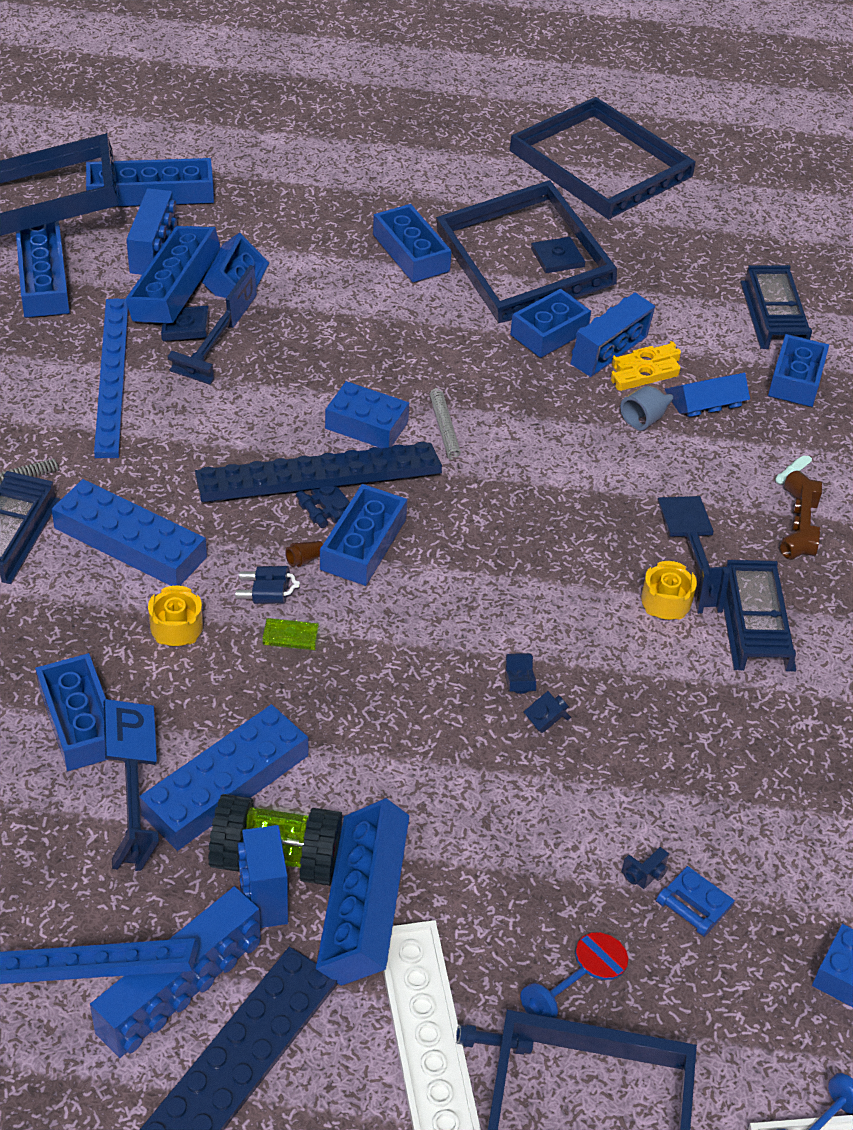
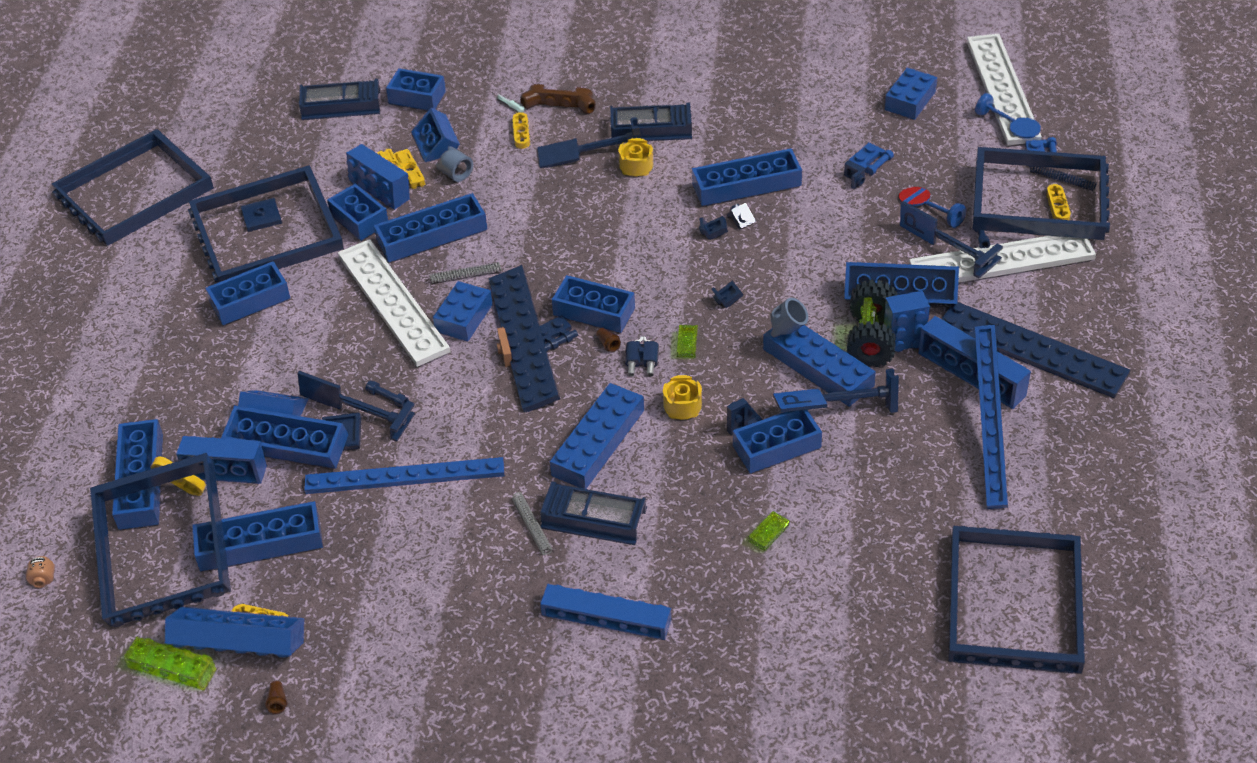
camera: 85 degrees left, 0 degrees up
(43, 136) = (40, 571): none -> nougat head
(124, 671) = (740, 415): none -> dark blue wing
(133, 201) = (190, 484): none -> yellow beam
(230, 368) = (374, 387): none -> dark blue bar
(270, 713) = (788, 317): none -> sand blue piece
(294, 450) = (503, 346): none -> nougat plate
(374, 680) = (728, 294): none -> dark blue bracket
(395, 359) = (394, 303): none -> white plate
(411, 1024) = (925, 227): none -> dark blue piece
(521, 386) = (430, 227): none -> blue brick
(628, 720) = (746, 177): none -> blue brick
(716, 474) = (521, 126): none -> yellow beam

